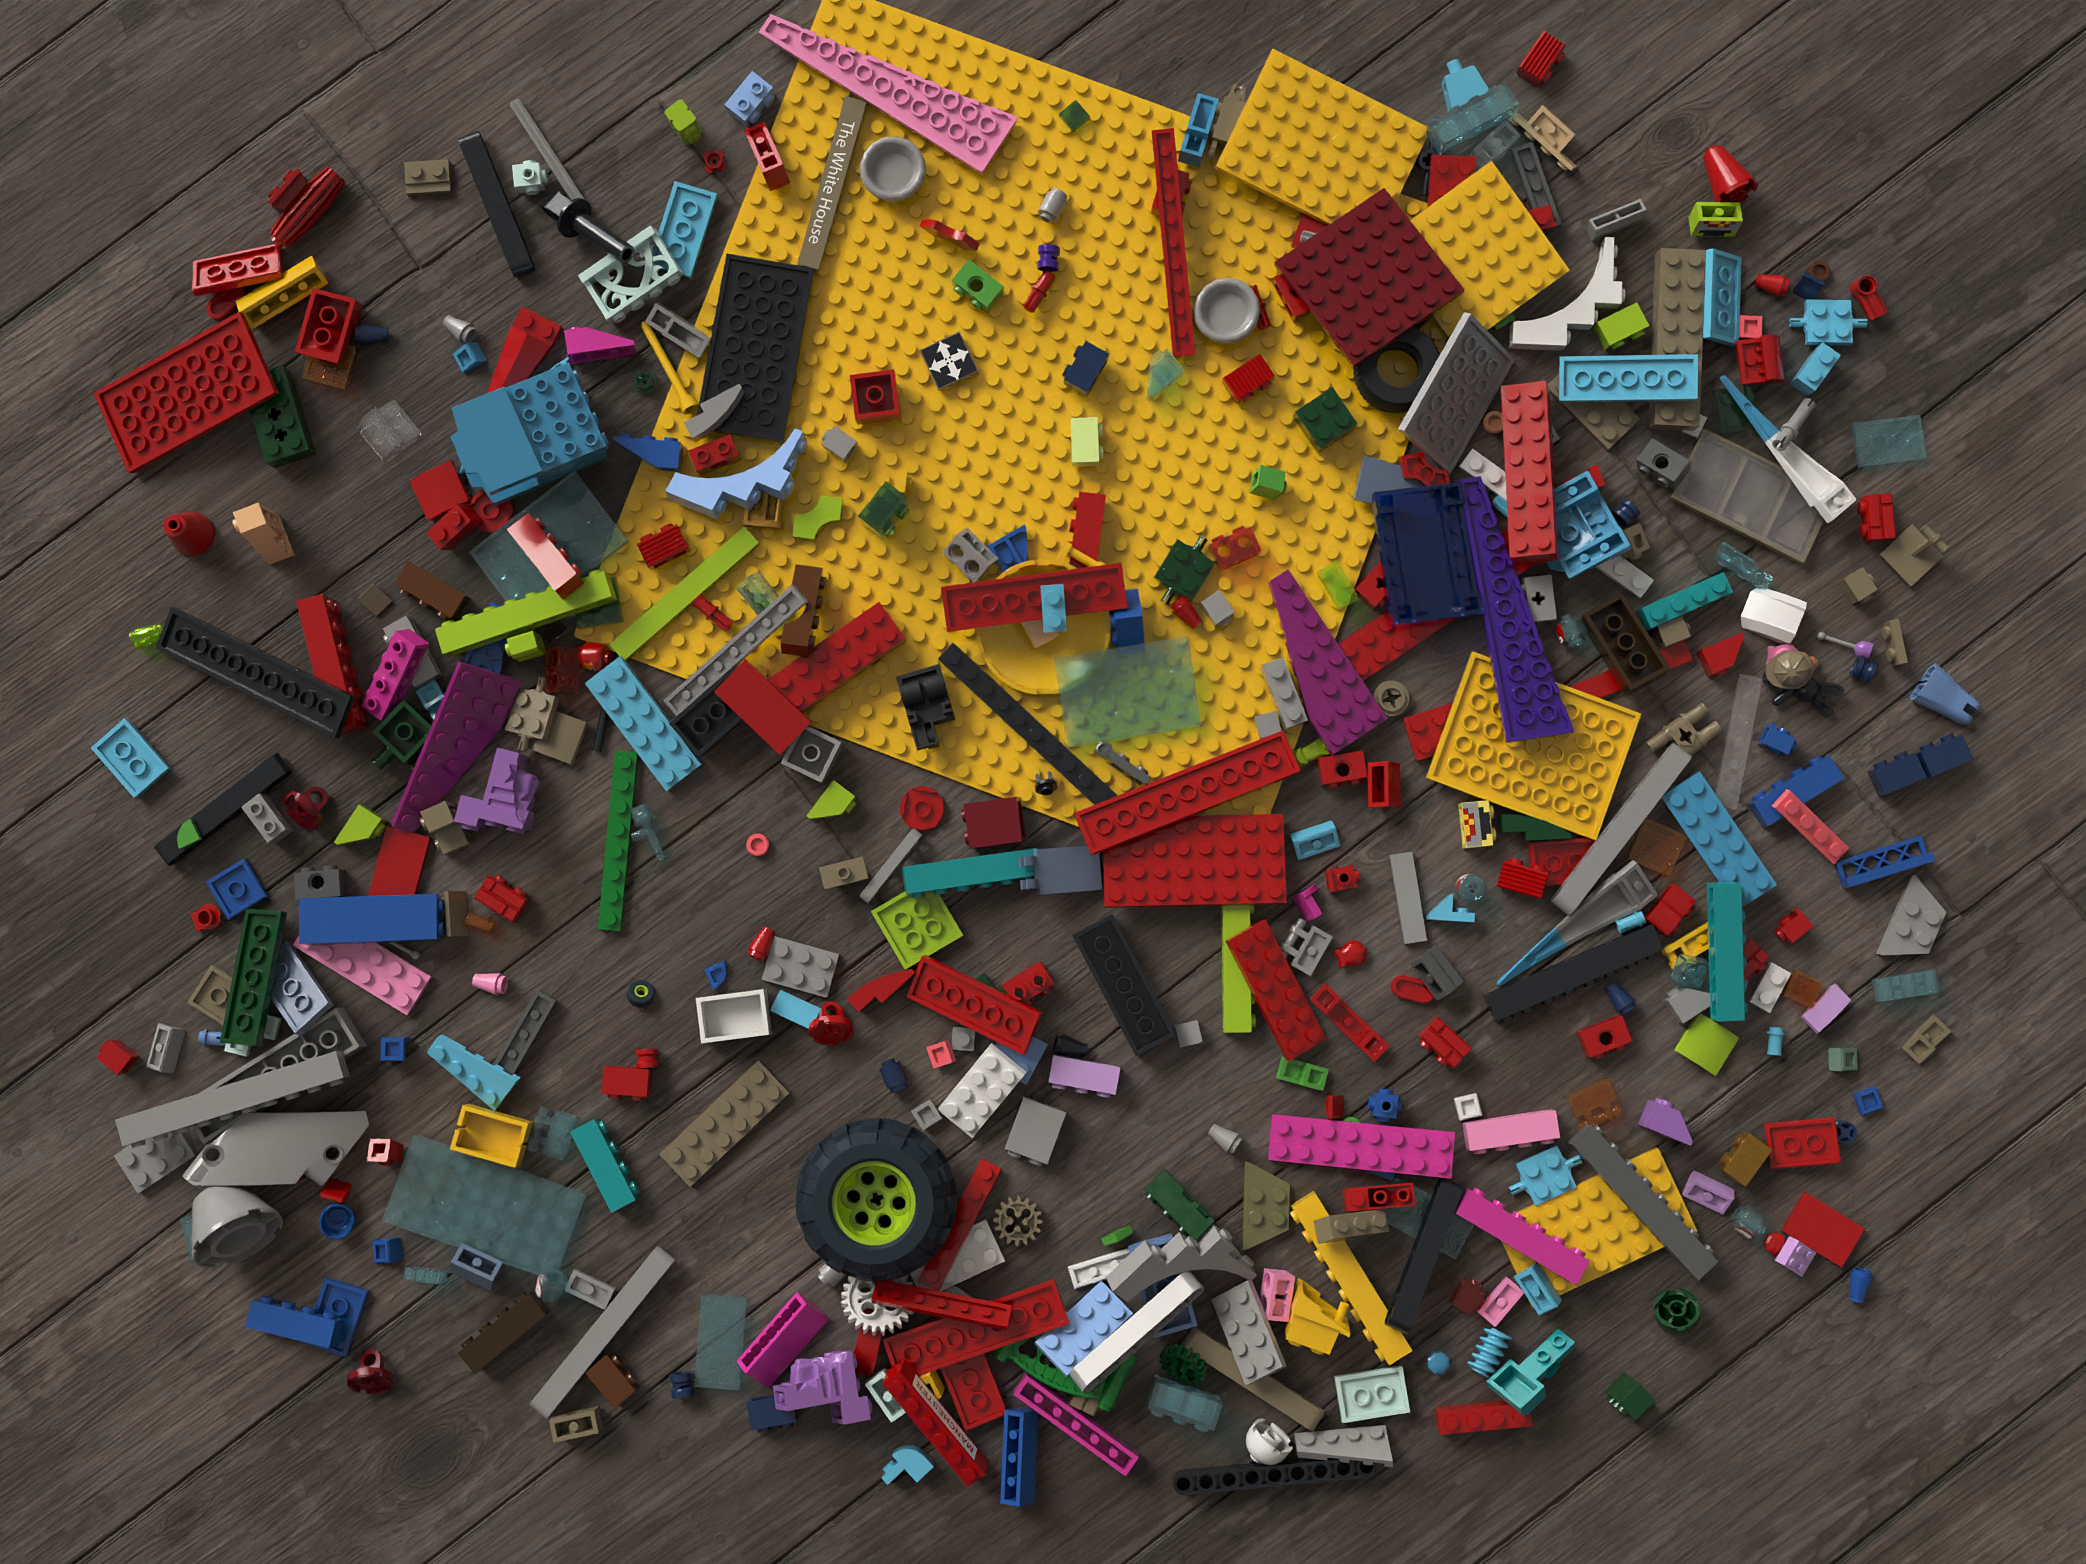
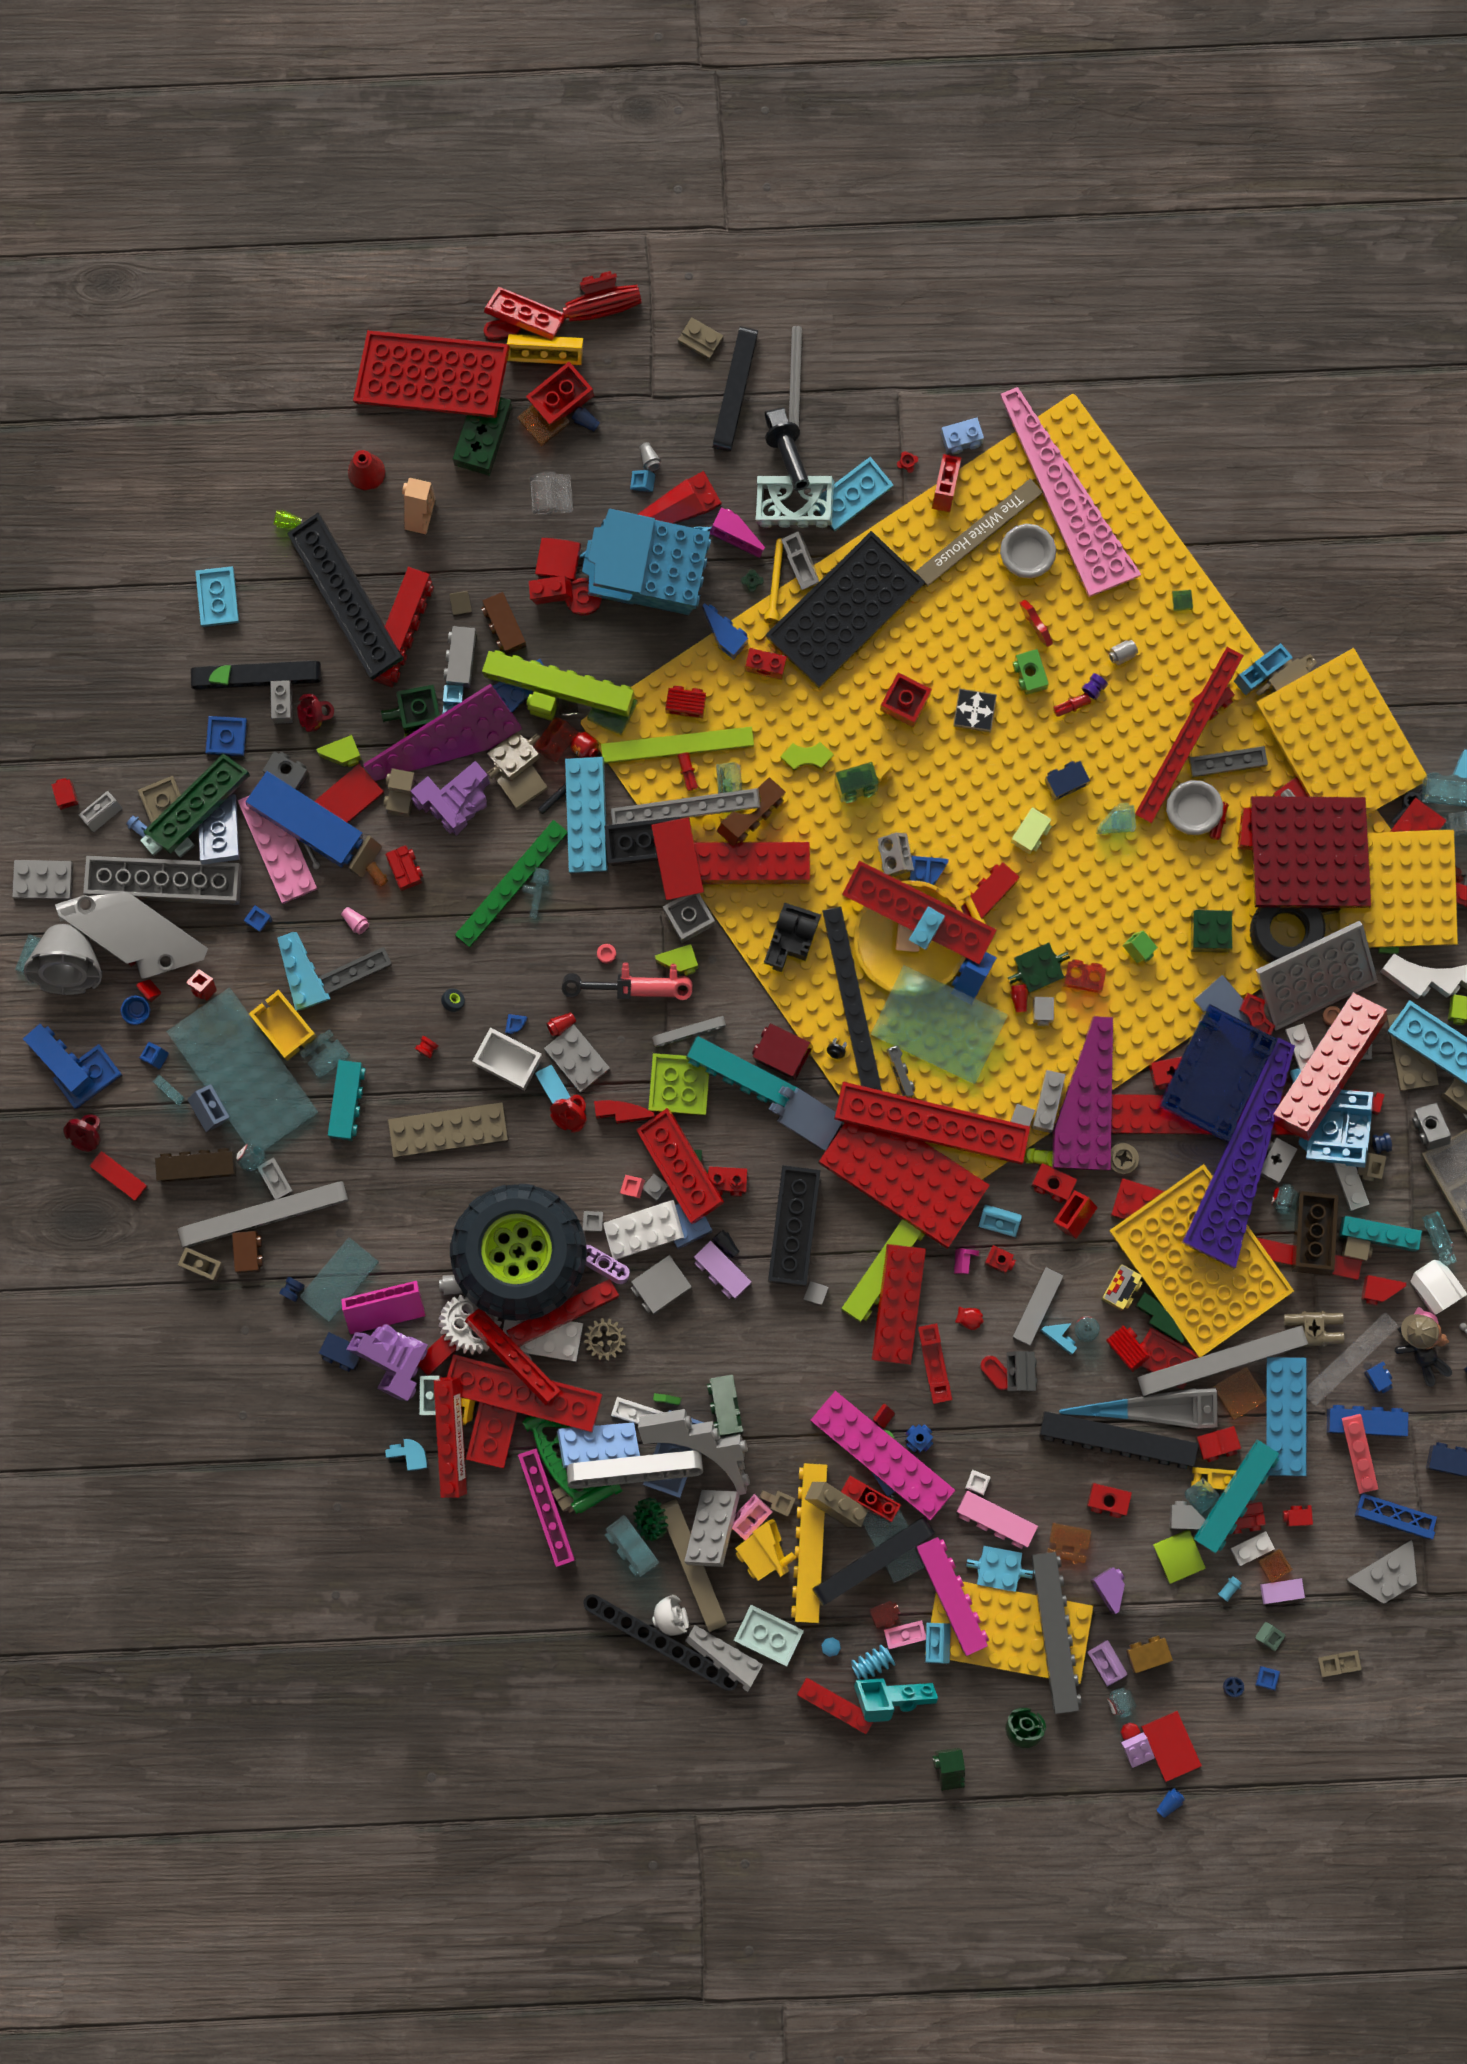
camera: 30 degrees right, 5 degrees down
(206, 917) = (191, 741): red animal -> none
(231, 1098) = (127, 875): light grey brick -> none
(395, 673) = (440, 662): dark pink brick -> none
(435, 1392) = (118, 1176): none -> red tile
(529, 177) = (770, 386): light aqua brick -> none
(545, 556) = (600, 652): brick -> none
(574, 521) = (609, 645): clear light blue plate -> none
(626, 1081) = (401, 1053): red brick -> none
(683, 122) = (904, 421): lime brick -> none
(714, 413) = (786, 634): light grey slope -> none
(743, 489) = (769, 700): light blue arch -> none
(758, 514) = (771, 718): pearl gold plate -> none
(807, 859) = (634, 986): none -> coral piece
(839, 444) = (857, 715): light grey brick -> none
(843, 873) = (652, 1013): dark tan brick -> none
(893, 1075) = (589, 1178): dark blue brick -> none
(922, 808) = (738, 1007): red tile -> none
(982, 1142) = (612, 1262): none -> lavender beam
(1019, 1456) = (491, 1503): blue brick -> none
(1225, 1138) = (790, 1384): light grey cone -> none
(1227, 243) = (1228, 761): none -> dark grey plate
(1248, 379) = (1177, 866): red brick -> none
(1264, 1206) = (784, 1451): olive wing -> none
(1295, 1259) = (780, 1502): none -> dark tan plate
(1302, 1073) = (876, 1377): bright green slope -> none
(1310, 951) = (944, 1294): light grey plate -> none
(1337, 585) = (1140, 1052): clear neon green plate -> none
(1443, 1042) = (992, 1424): red brick -> none
(1620, 999) = (1139, 1482): dark blue cone -> none
(1630, 922) = (1184, 1433): medium azure pin -> none
(1802, 1143) = (1199, 1673): red tile -> none
(1906, 985) = (1351, 1614): clear light blue beam -> none

